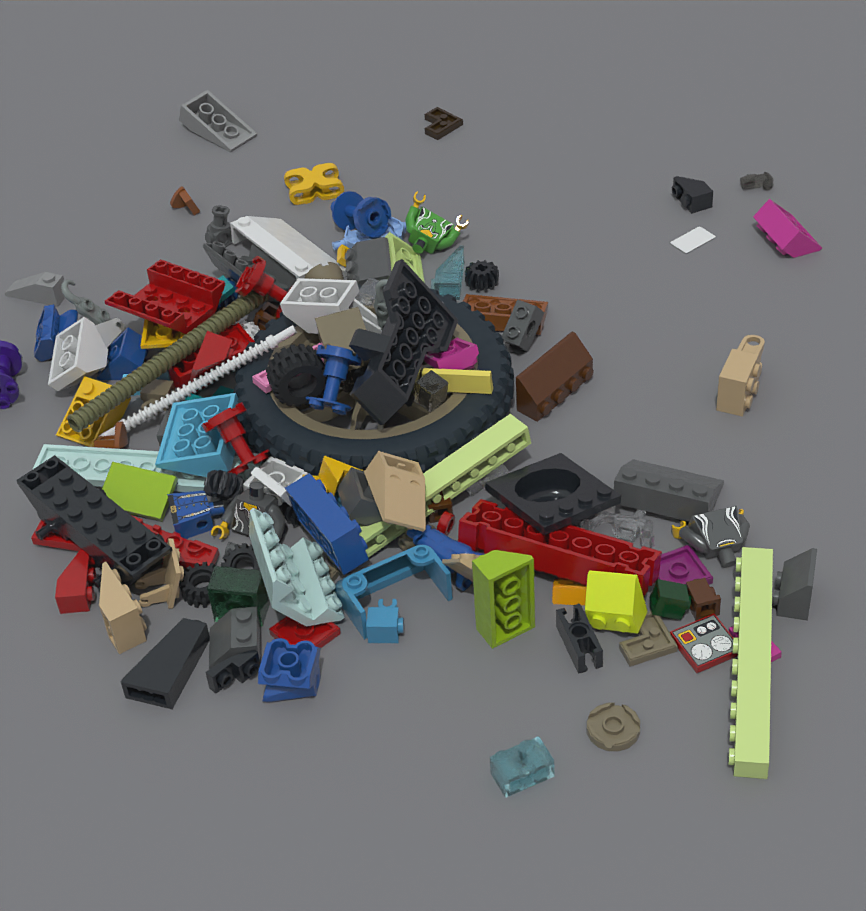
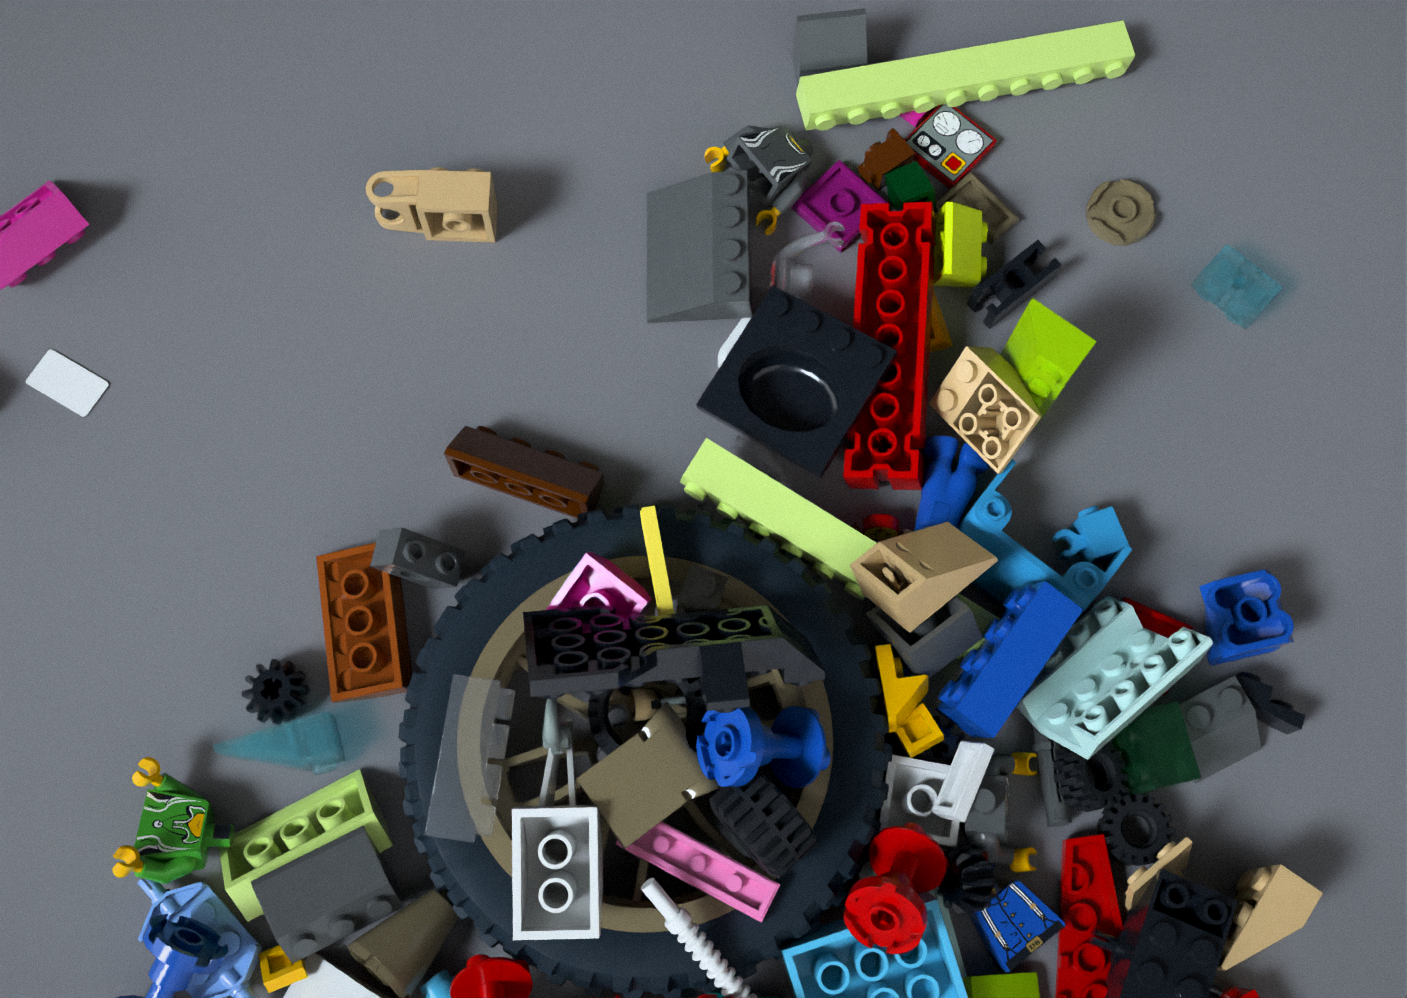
camera: 120 degrees left, 30 degrees up
(168, 666) = (1302, 800): black slope -> none

